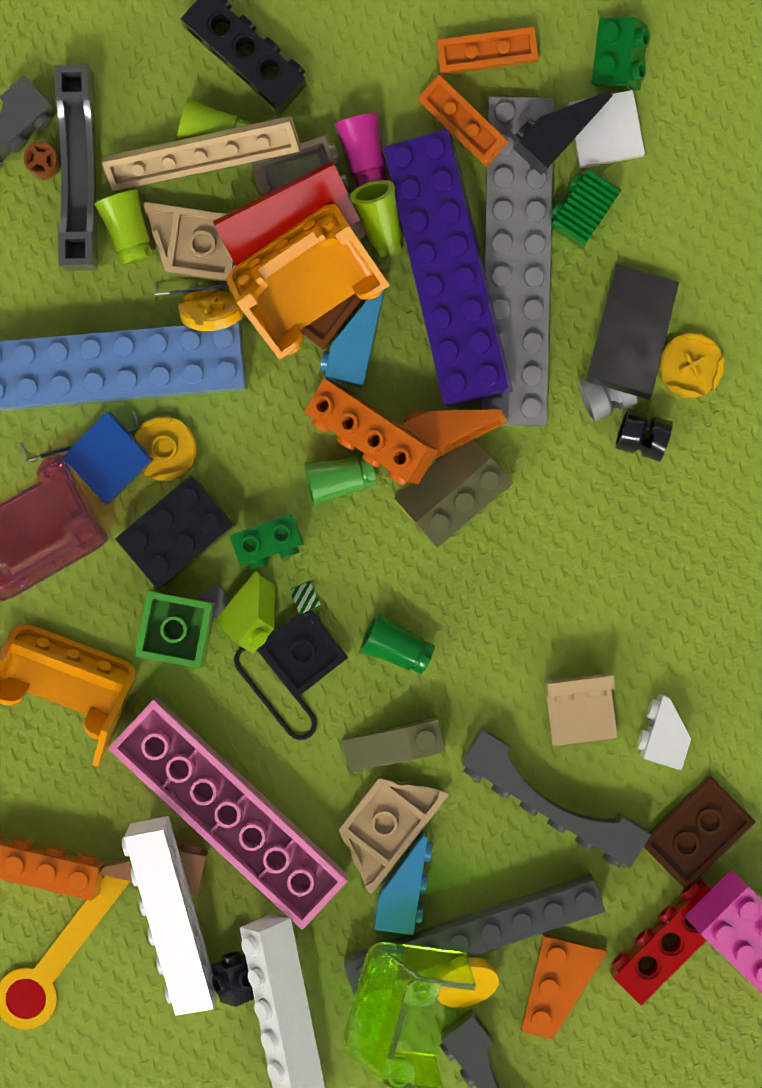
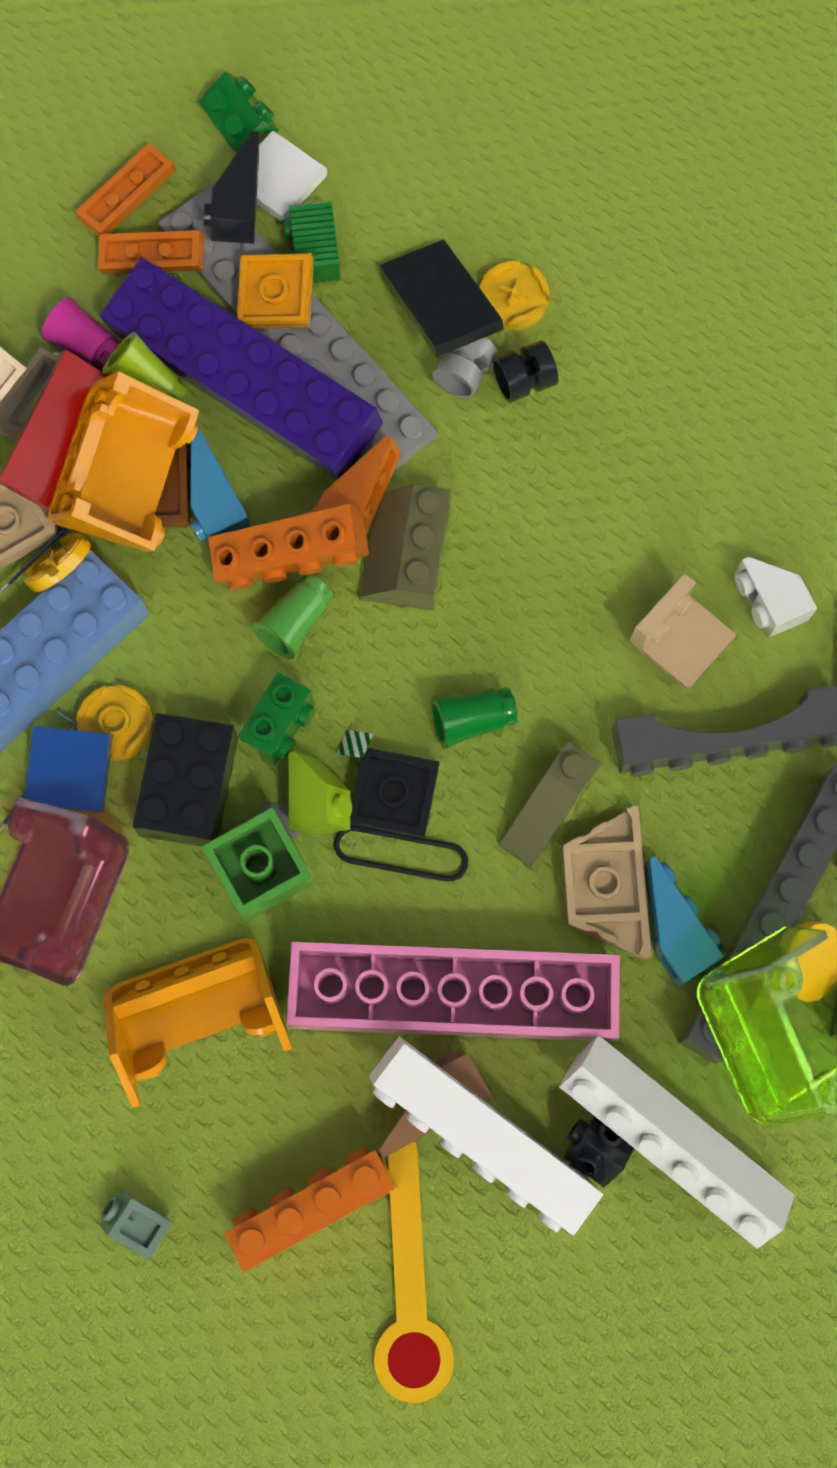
camera: 45 degrees left, 15 degrees down
(522, 229) = (275, 290): none -> light orange tile

